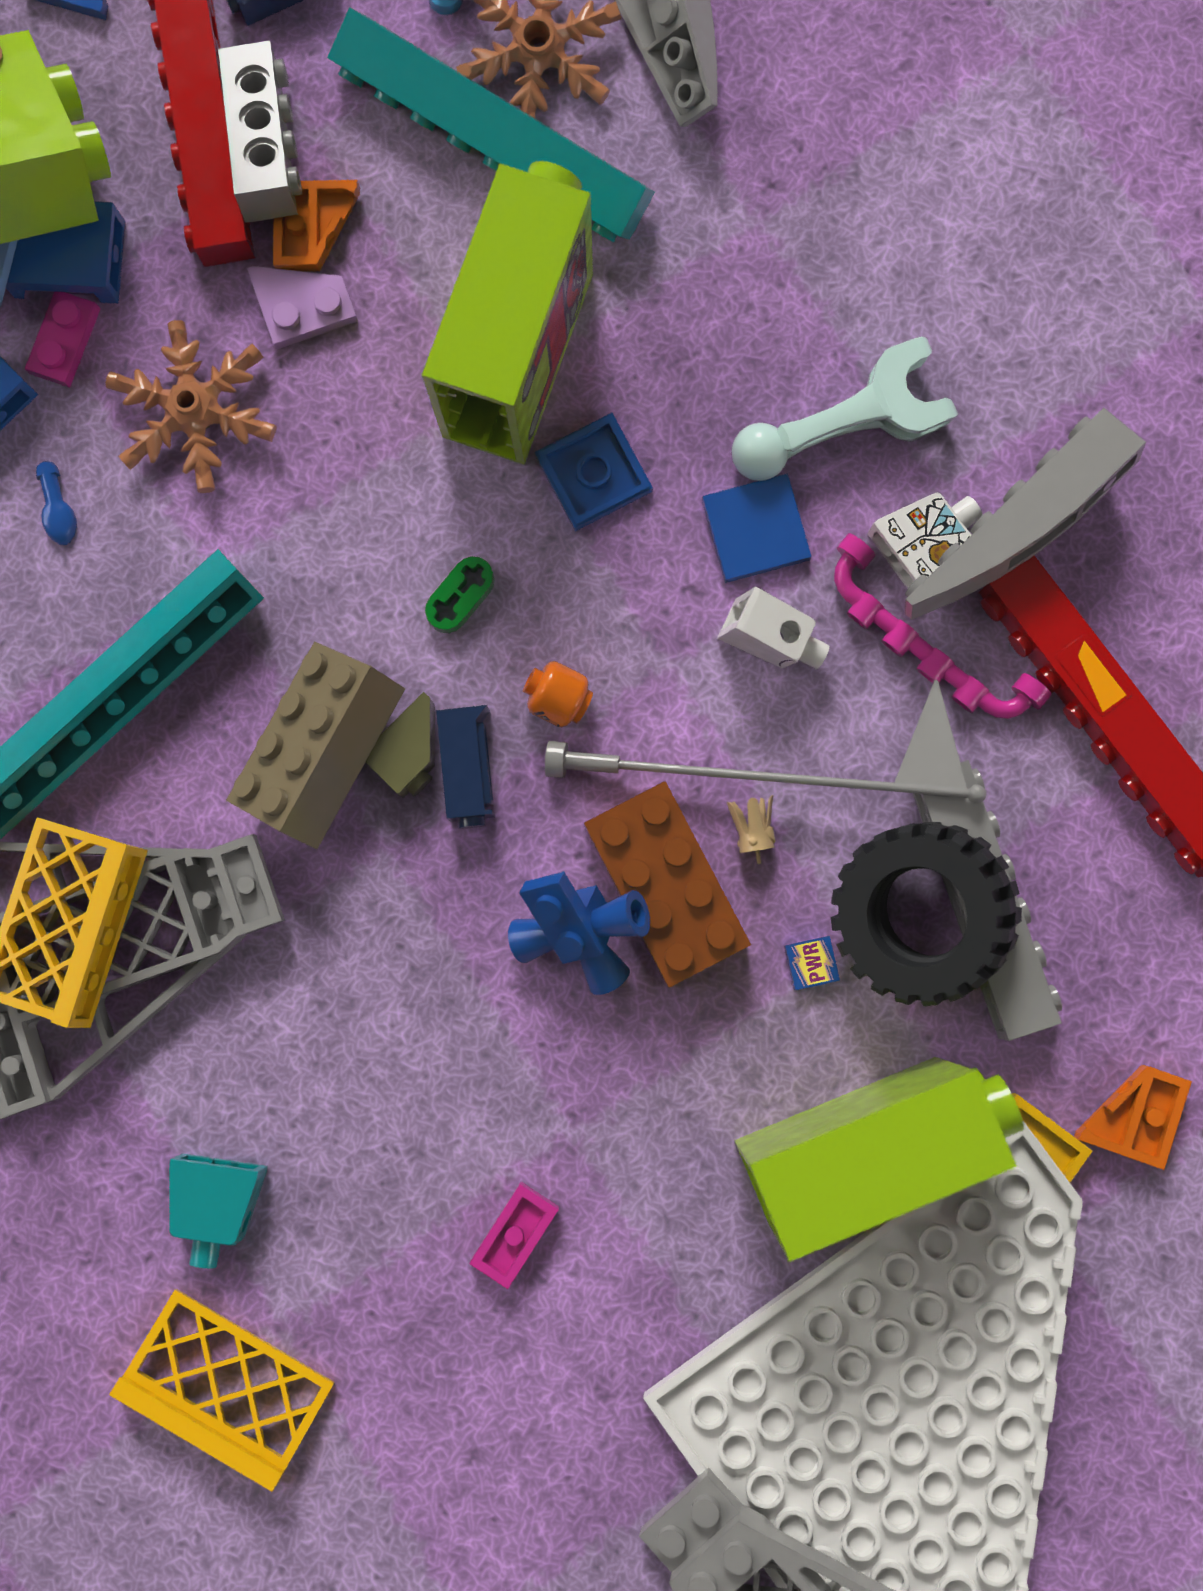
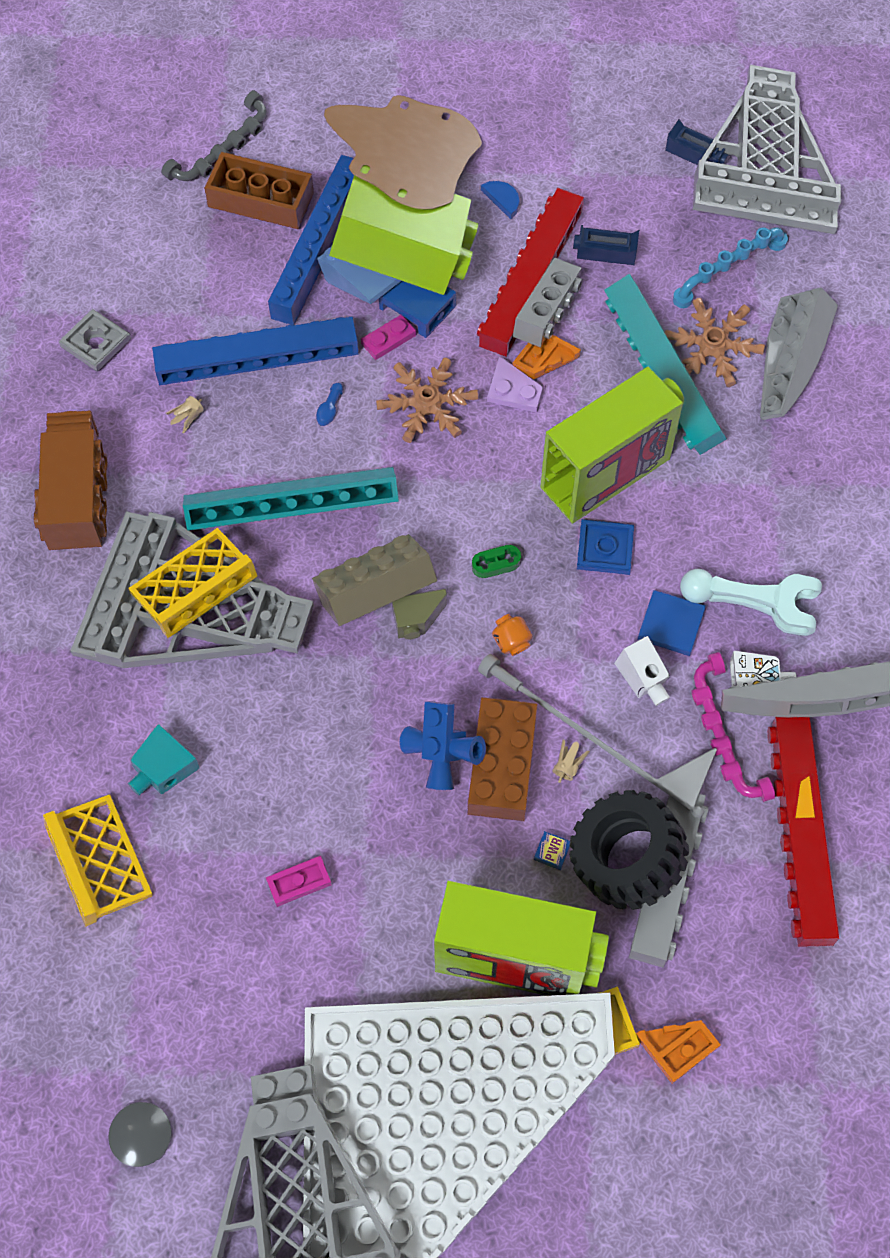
camera: 30 degrees right, 20 degrees down
(465, 765) = (441, 638): dark blue window -> none

